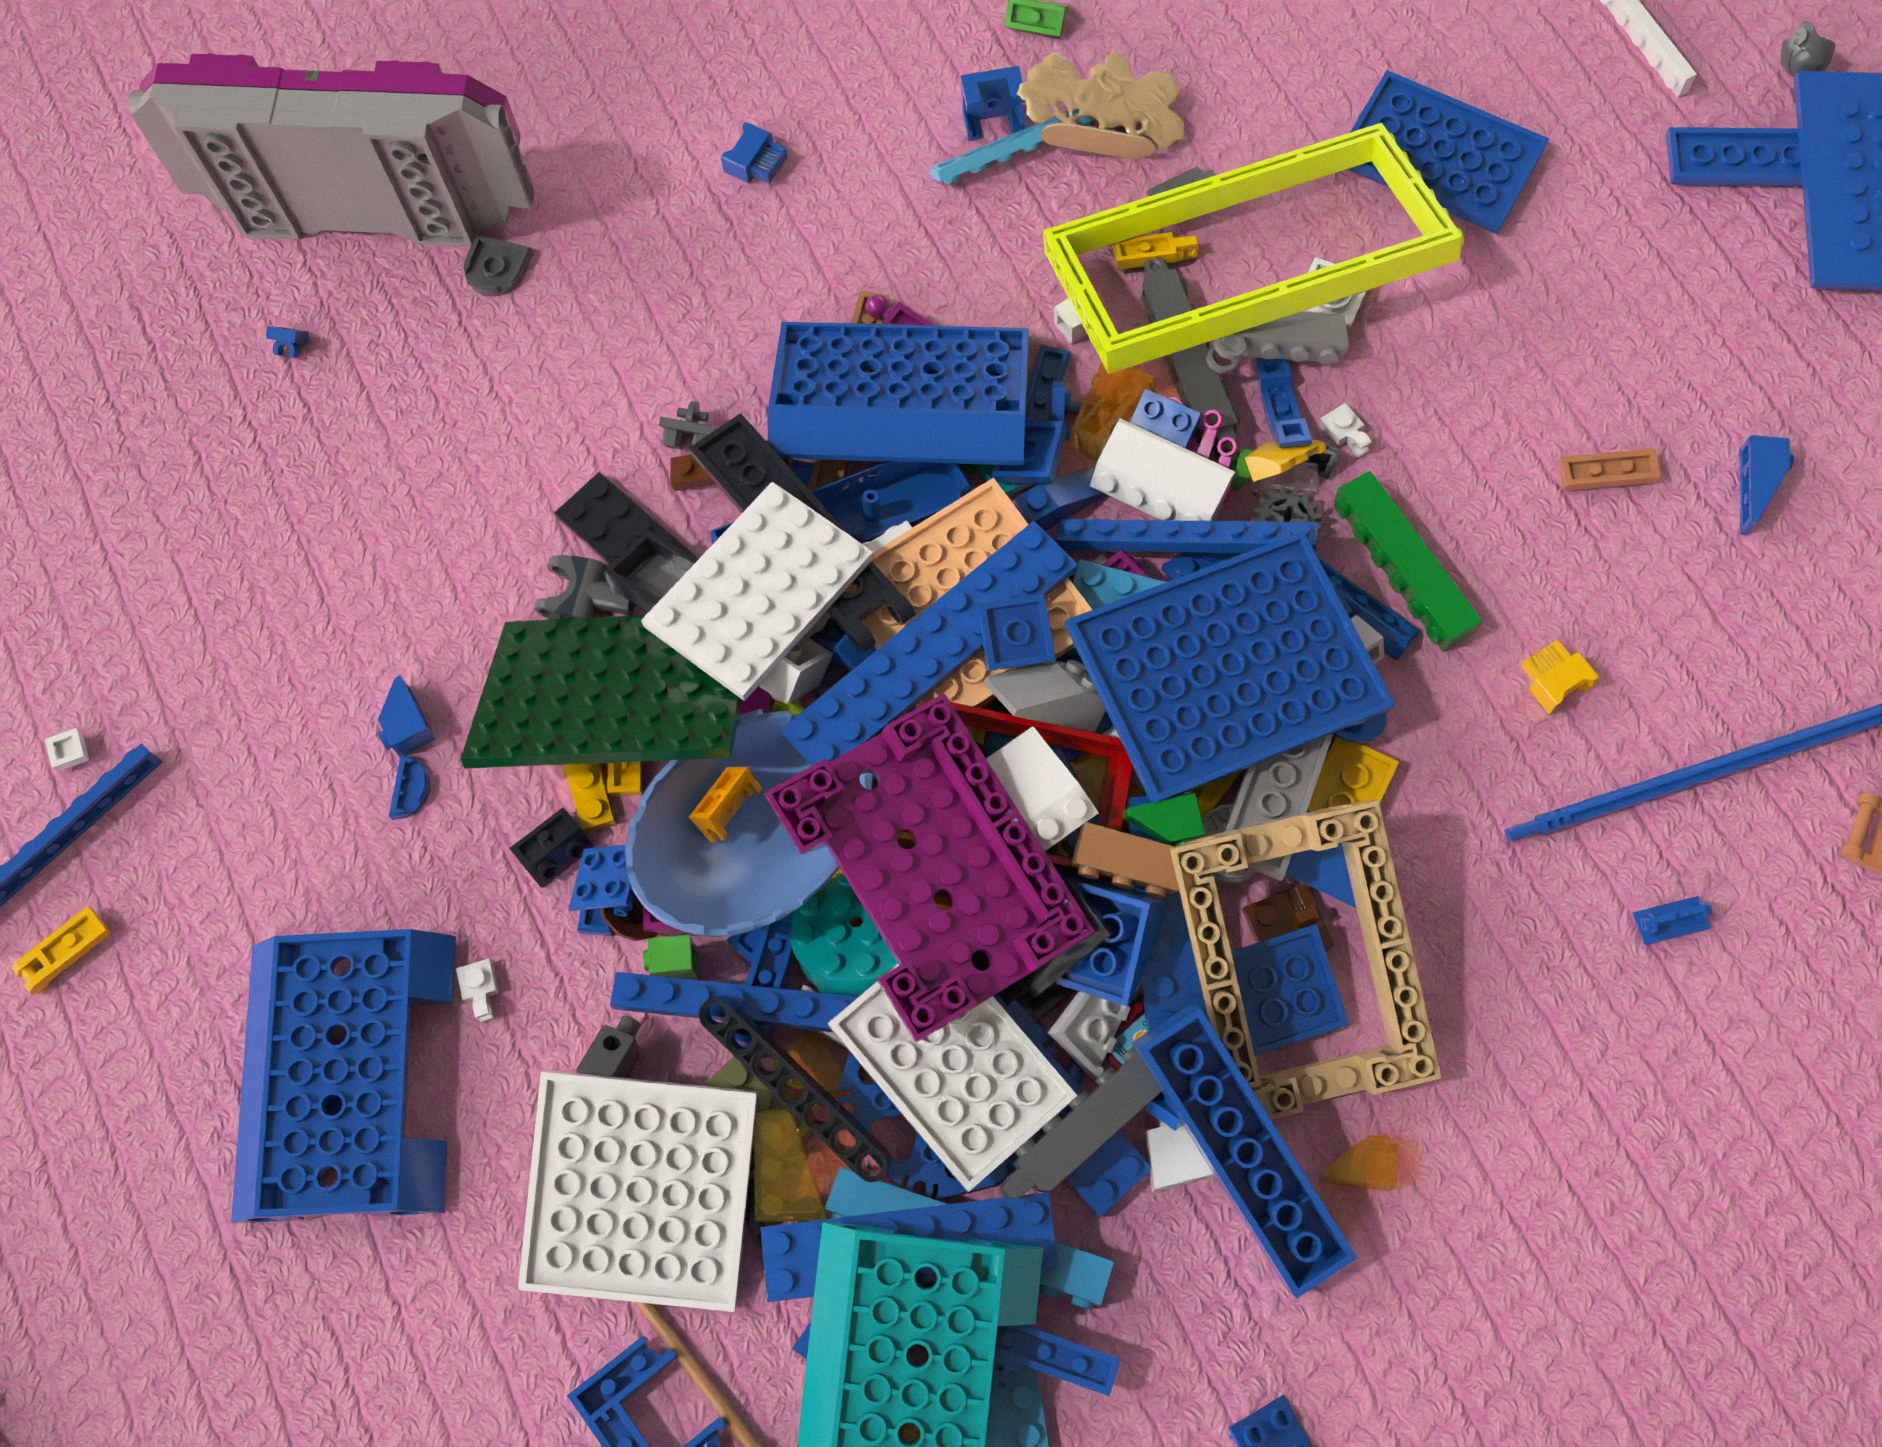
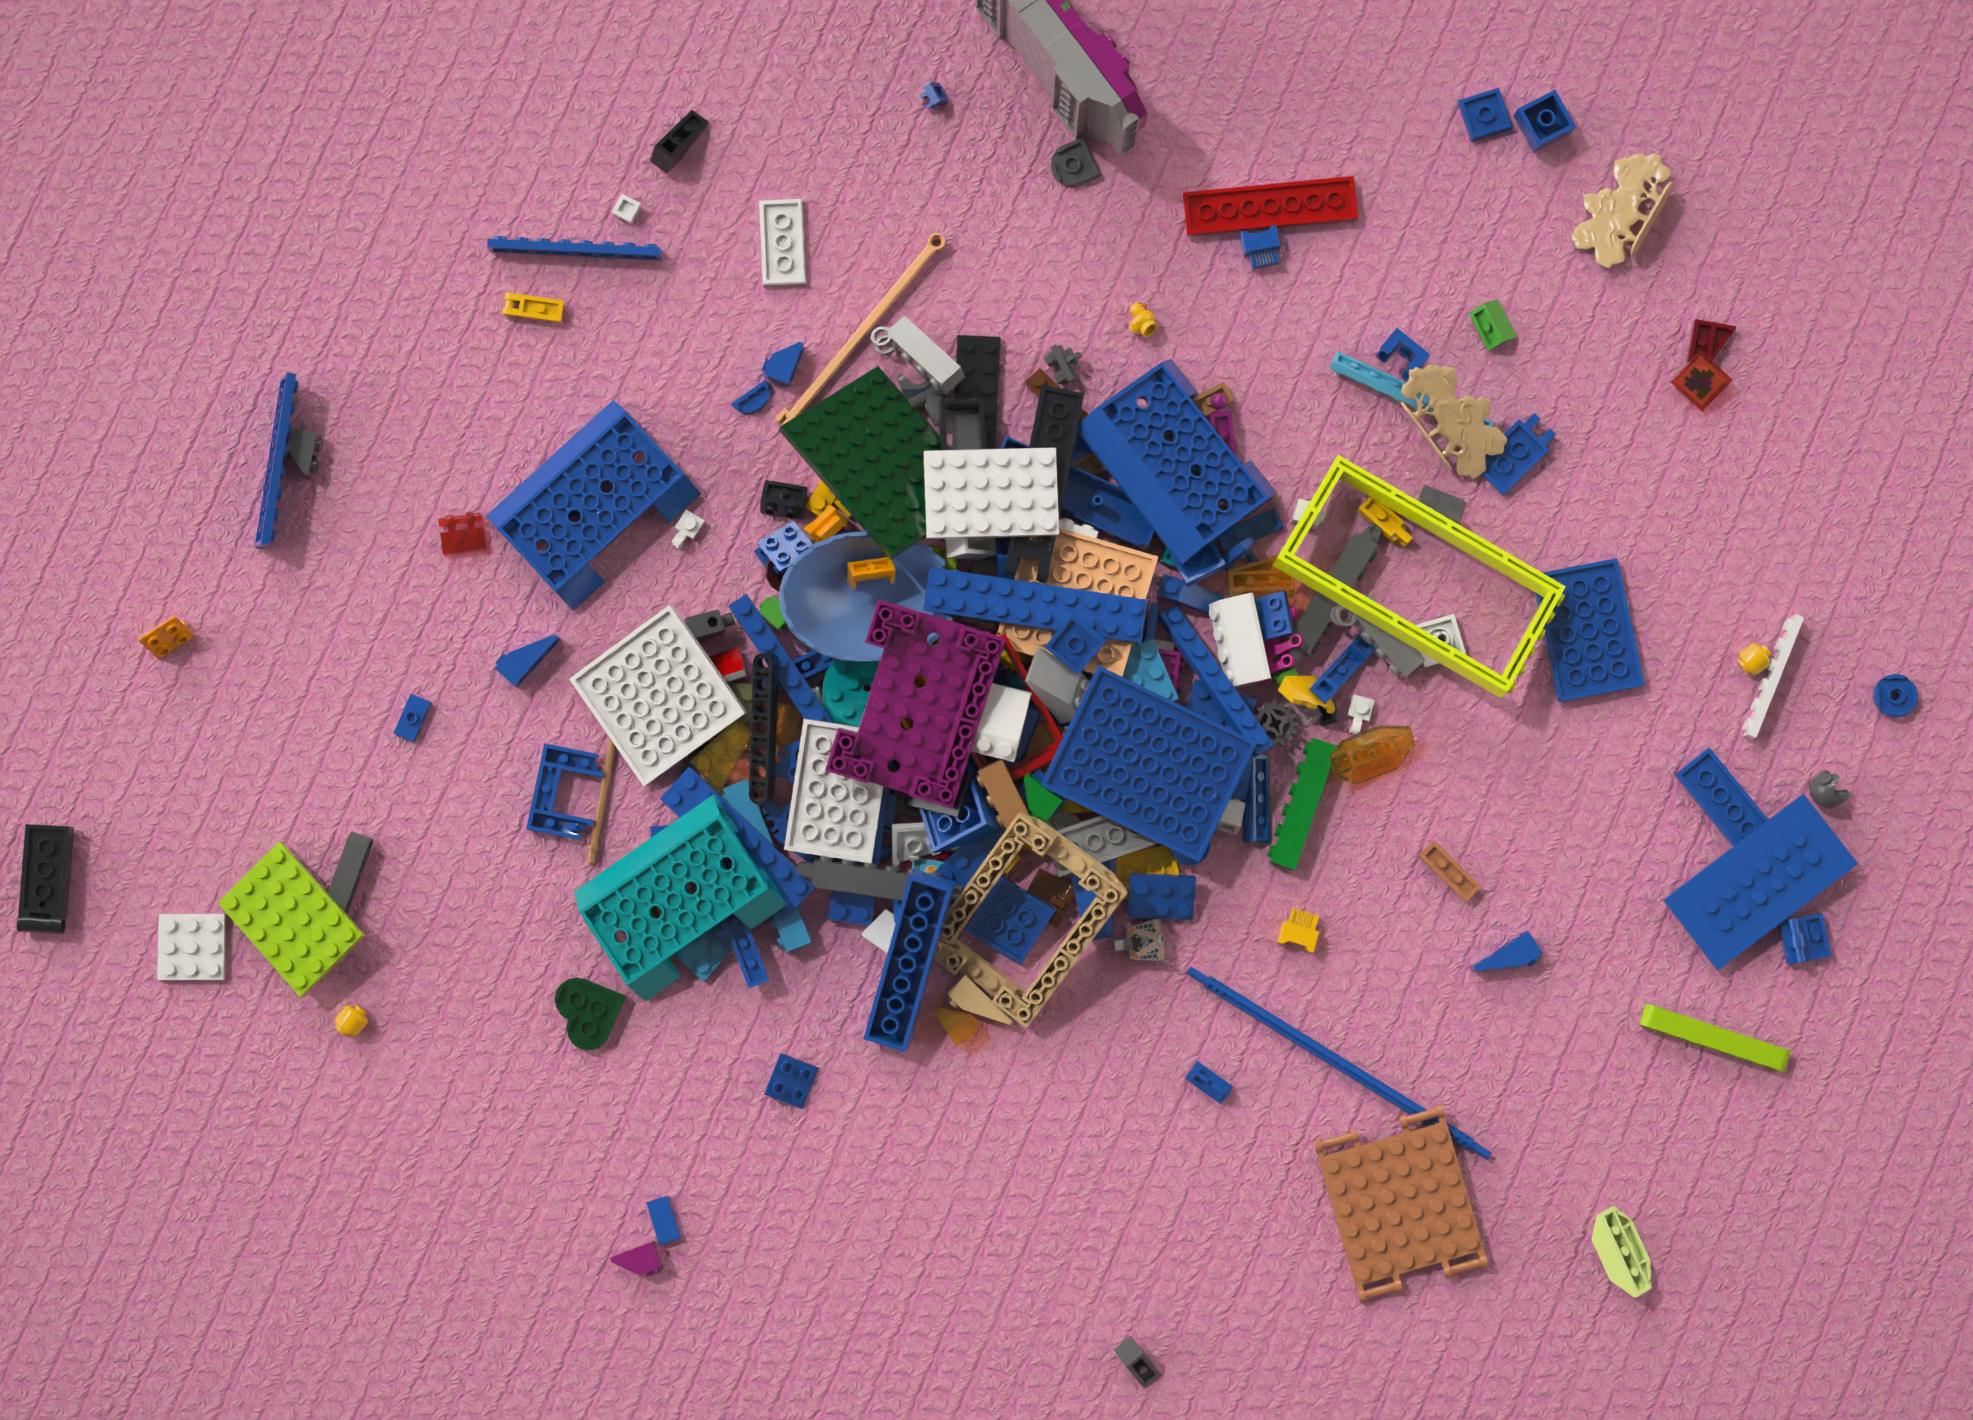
camera: 45 degrees right, 15 degrees up
(56, 635) = (678, 141): none -> black slope
(231, 1280) = (462, 540): none -> clear red plate
(276, 615) = (782, 242): none -> white tile
(443, 1333) = (522, 661): none -> blue slope
(452, 604) = (864, 329): none -> light nougat hinge
(535, 556) = (921, 351): none -> hinge
(621, 807) = (826, 524): none -> light orange piece
(684, 1066) = (729, 664): none -> red tile
(716, 120) = (1270, 205): none -> red plate
(720, 318) = (1144, 320): none -> yellow animal
(1199, 84) = (1519, 455): none -> blue tile
(1345, 1119) = (972, 999): none -> tan slope
(1403, 784) = (1161, 896): none -> blue plate
(1407, 441) = (1371, 753): none -> clear yellow wedge
(1434, 857) = (1143, 942): none -> torso
(1603, 25) = (1754, 659): none -> yellow head

